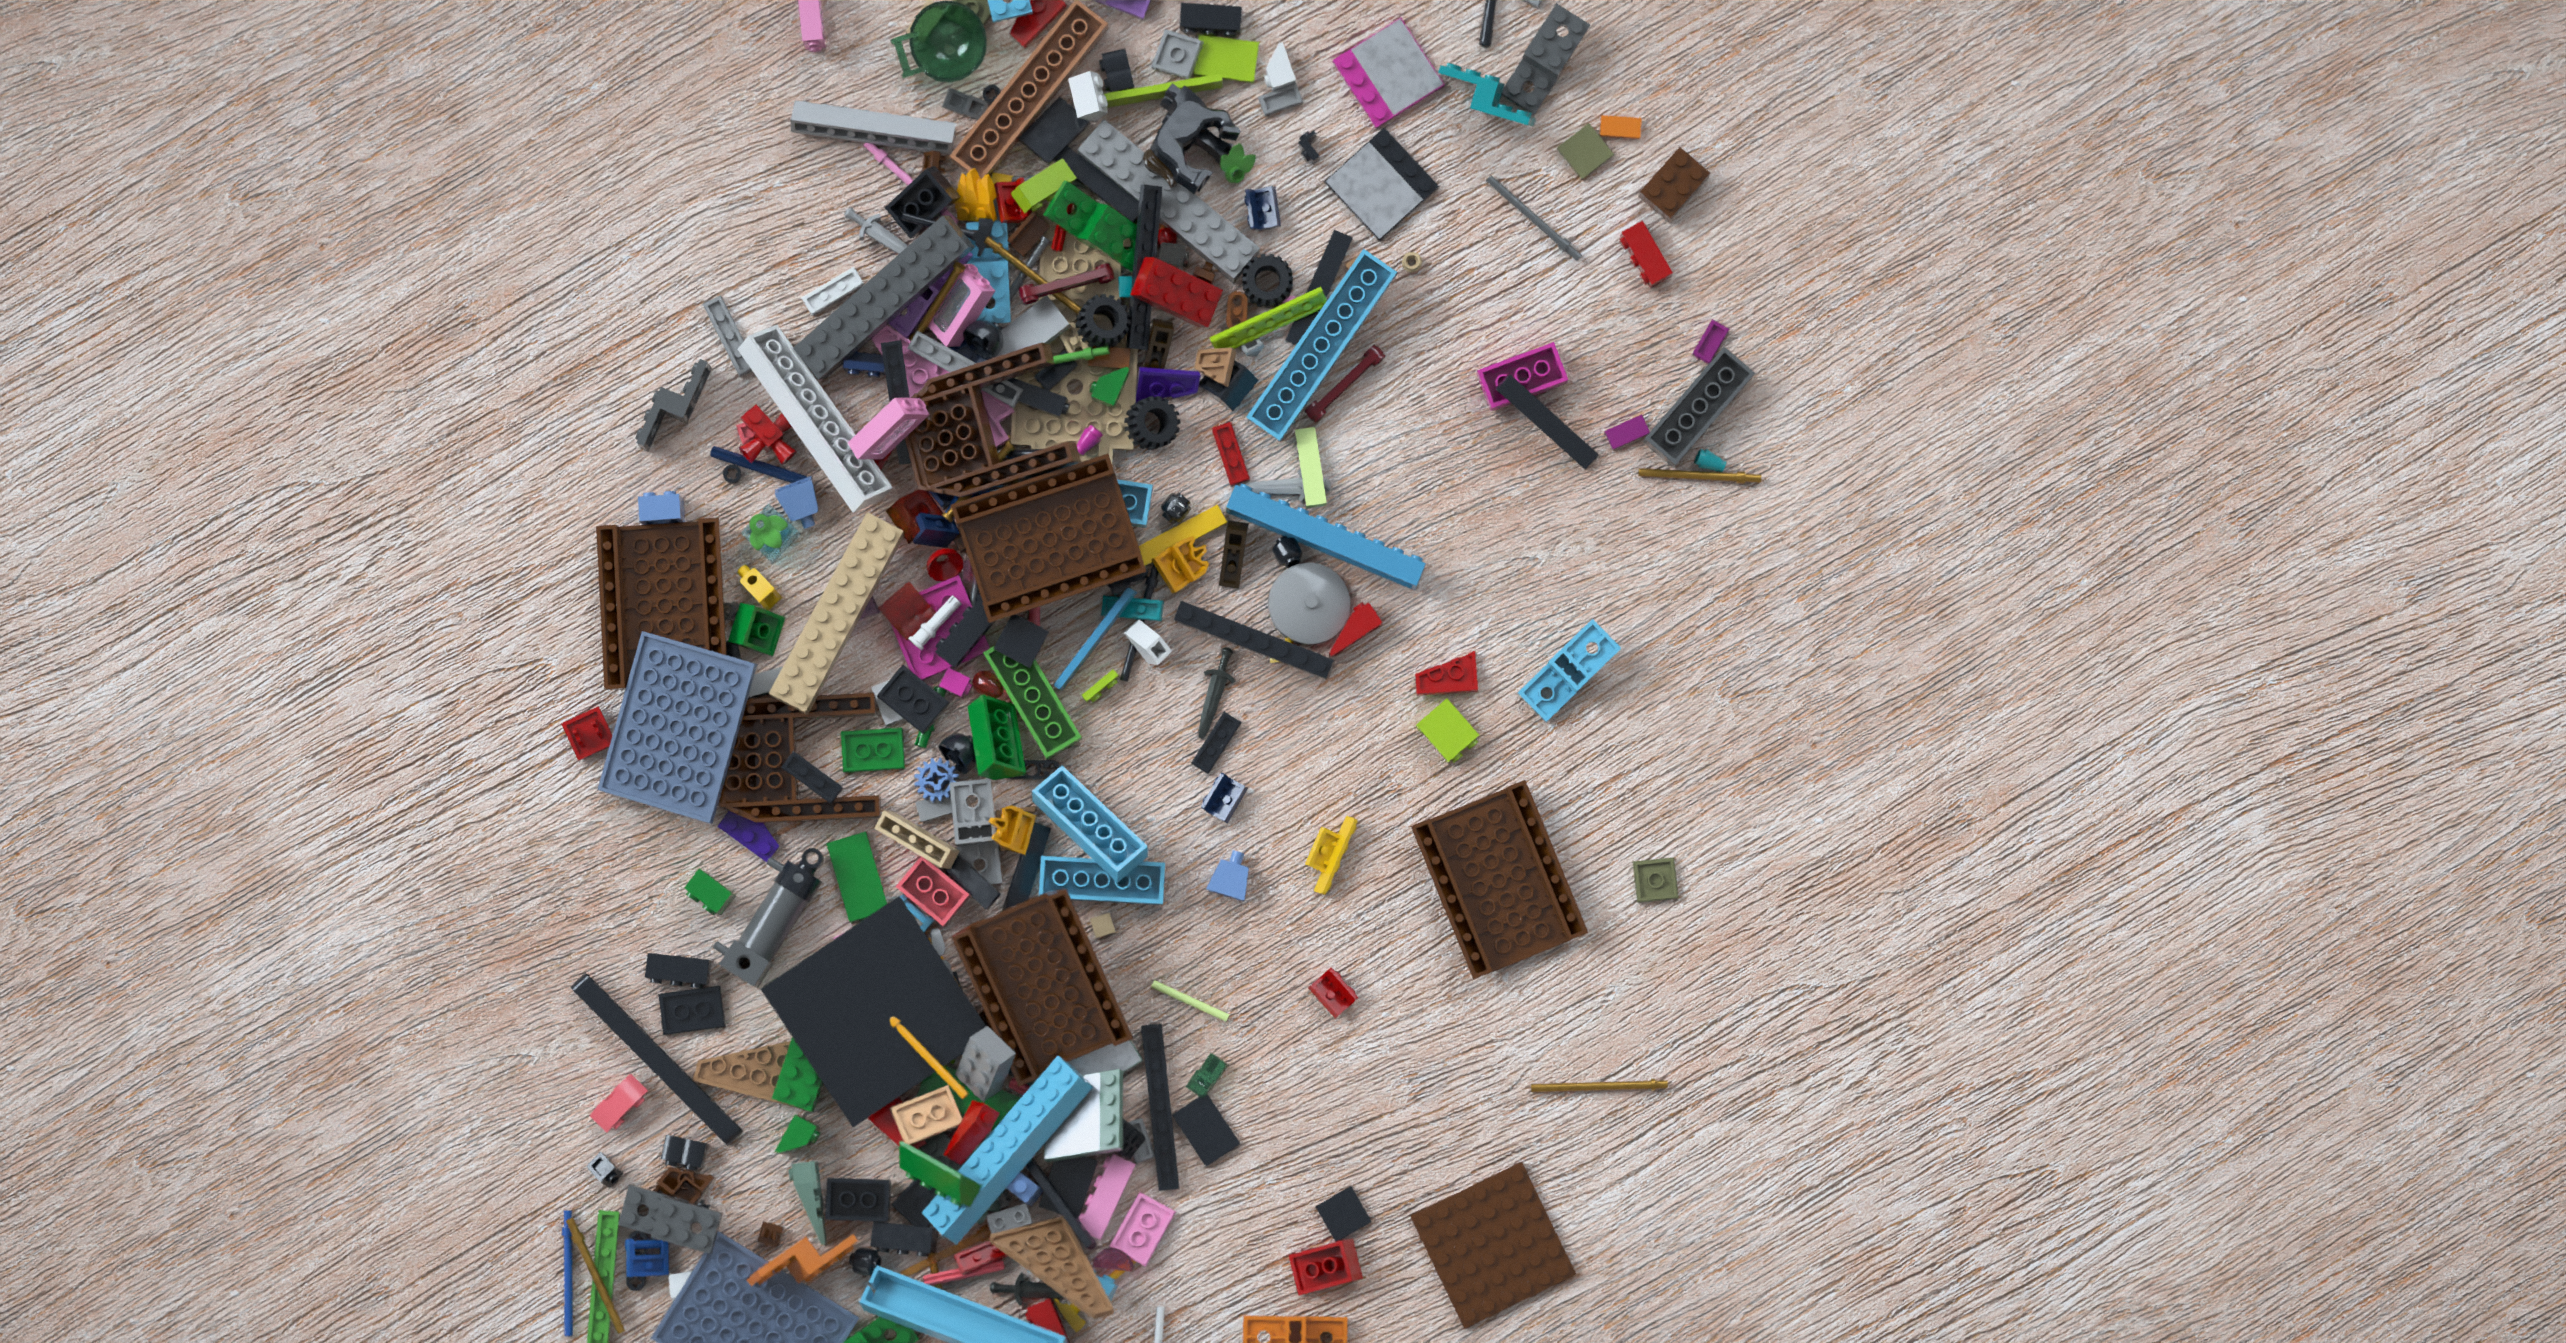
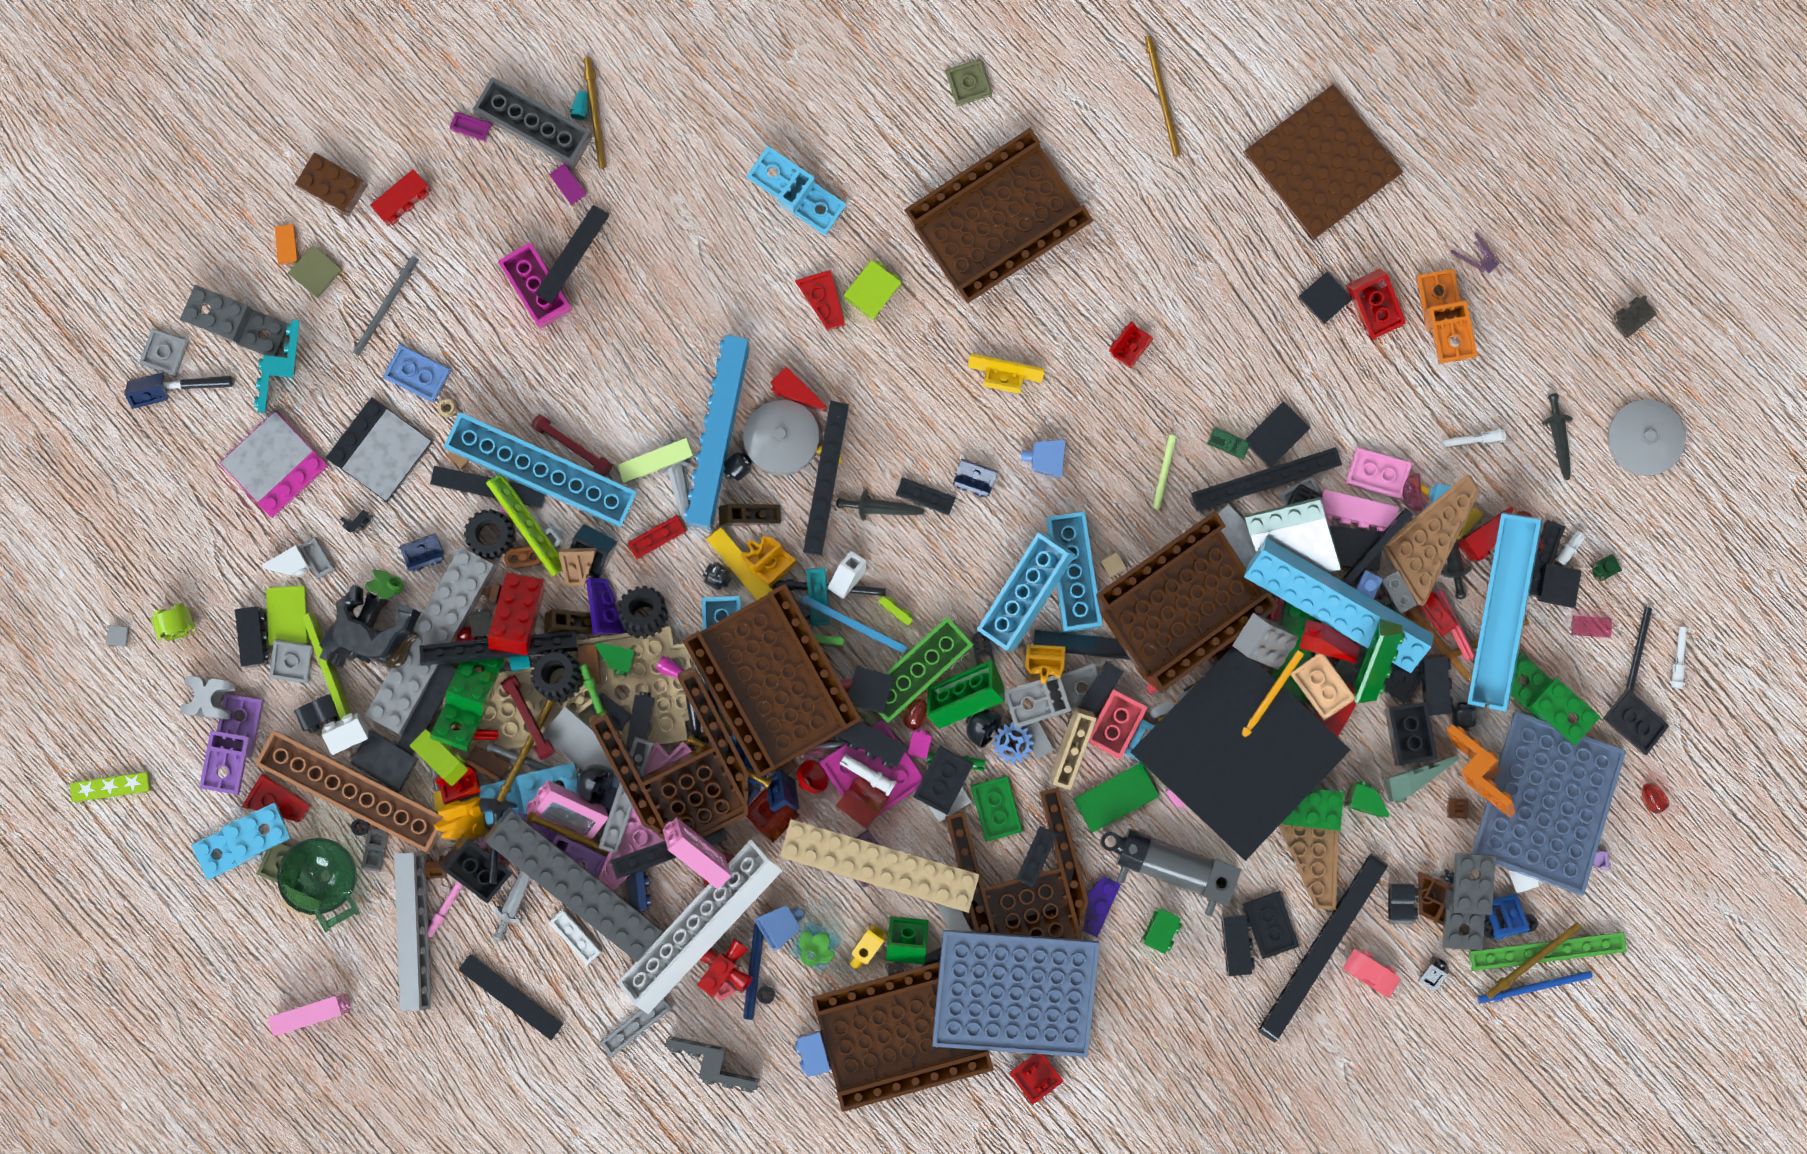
camera: 100 degrees left, 0 degrees up
(785, 214) = (510, 997): none -> black tile
(1082, 608) = (830, 641): none -> bright green tile
(1454, 237) = (417, 373): none -> medium blue tile

